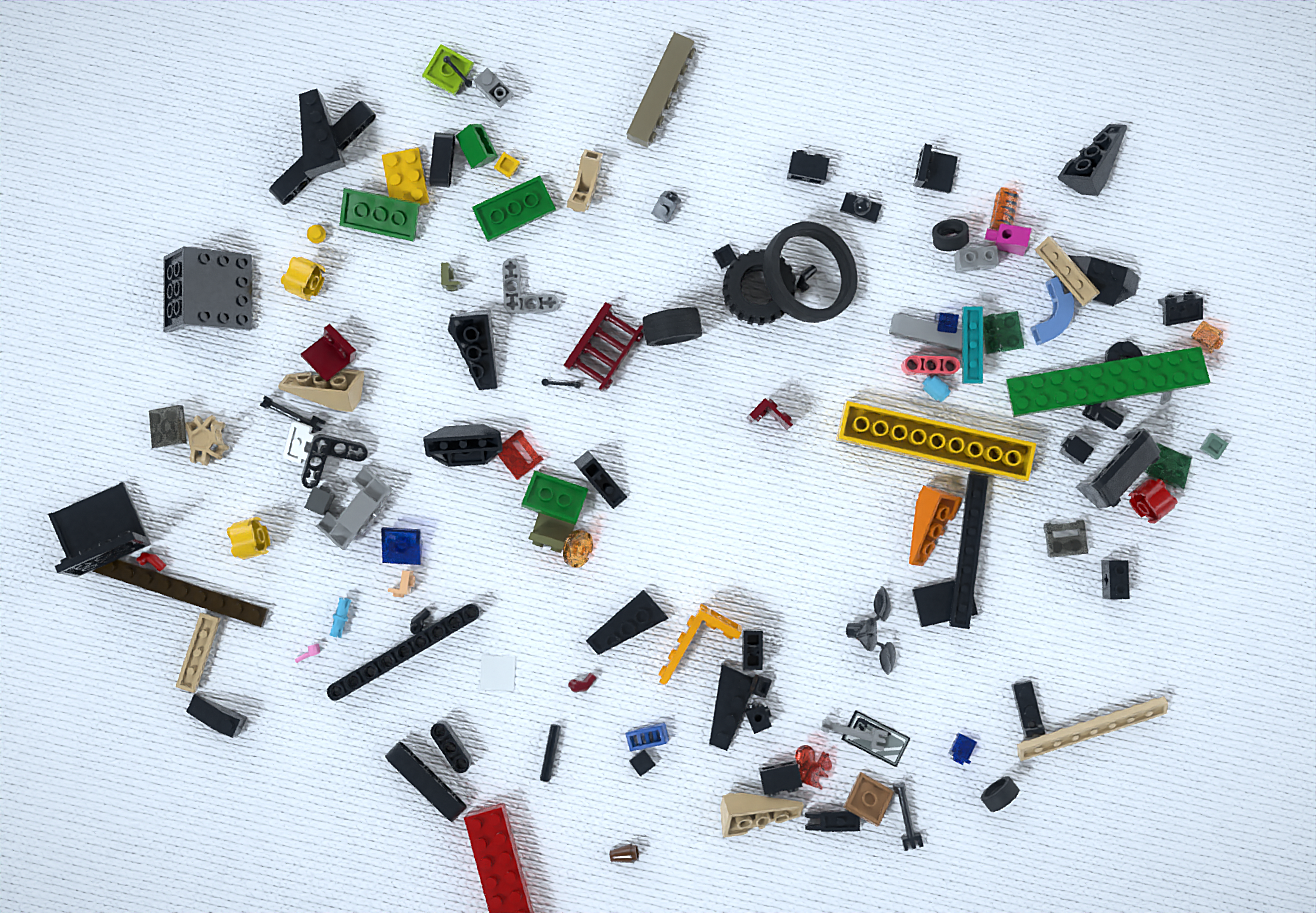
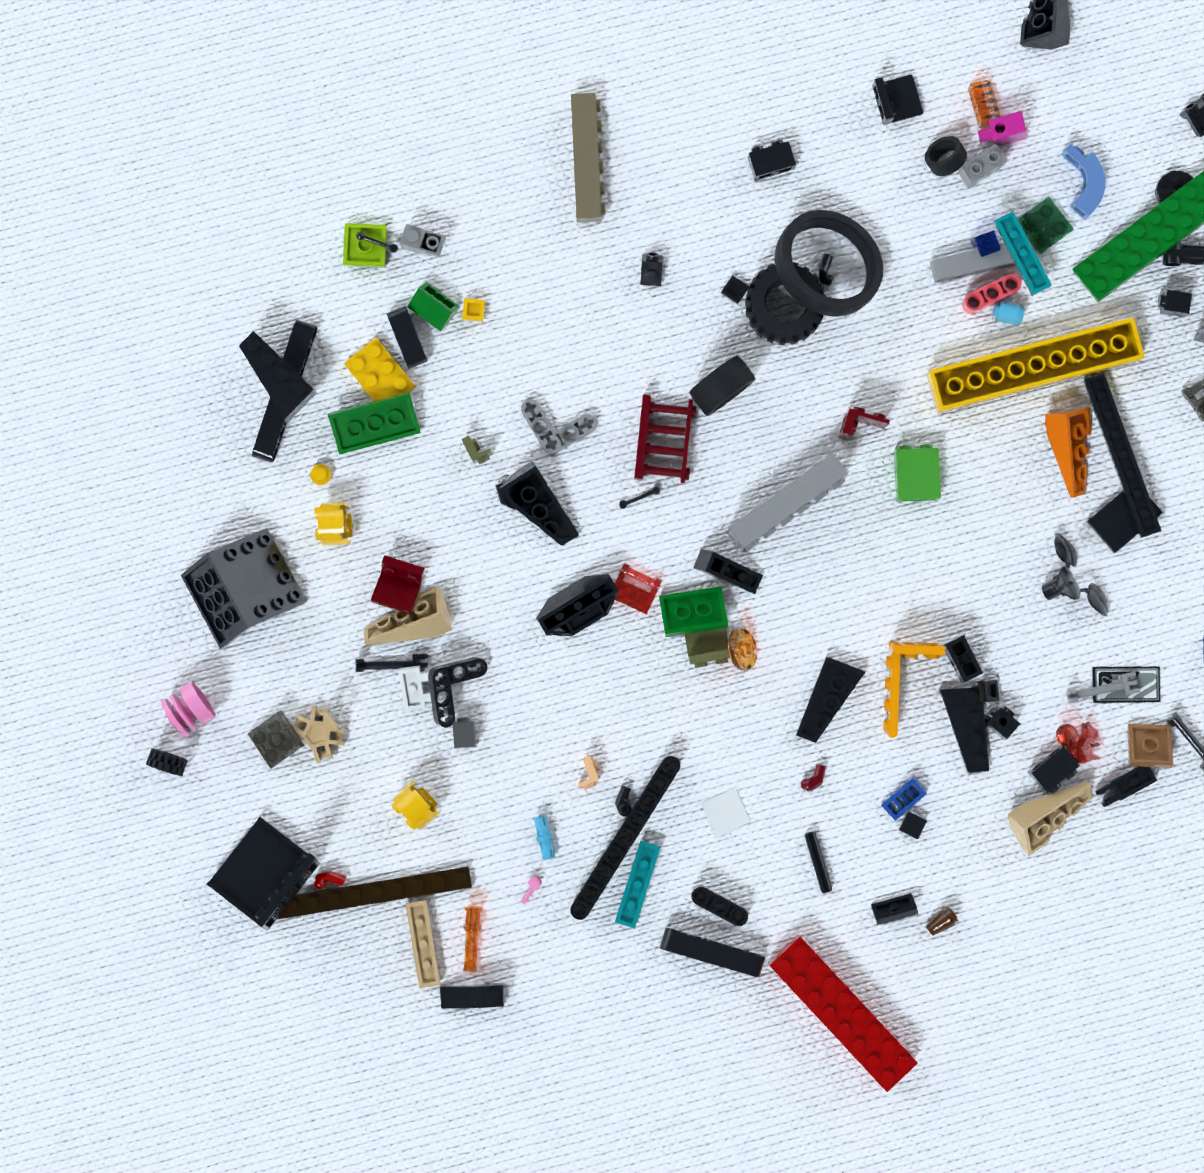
camera: 25 degrees left, 0 degrees up
(69, 399) = (166, 762): none -> black tyre
(108, 366) = (188, 709): none -> bright pink wheel
(242, 658) = (471, 926): none -> clear orange pin
(359, 512) = (509, 725): light grey bracket -> none
(394, 694) = (637, 884): none -> teal plate
(401, 546) = (567, 736): clear blue slope -> none
(514, 208) = (503, 349): green plate -> none
(586, 181) = (560, 286): tan arch -> none
(591, 823) = (894, 909): none -> black plate
(676, 448) = (788, 501): none -> light grey brick
(794, 479) = (917, 473): none -> bright green brick
(860, 207) = (843, 173): black tile -> none
(1067, 271) = (1076, 133): tan plate -> none
(1110, 279) = (1112, 125): black wedge -> none

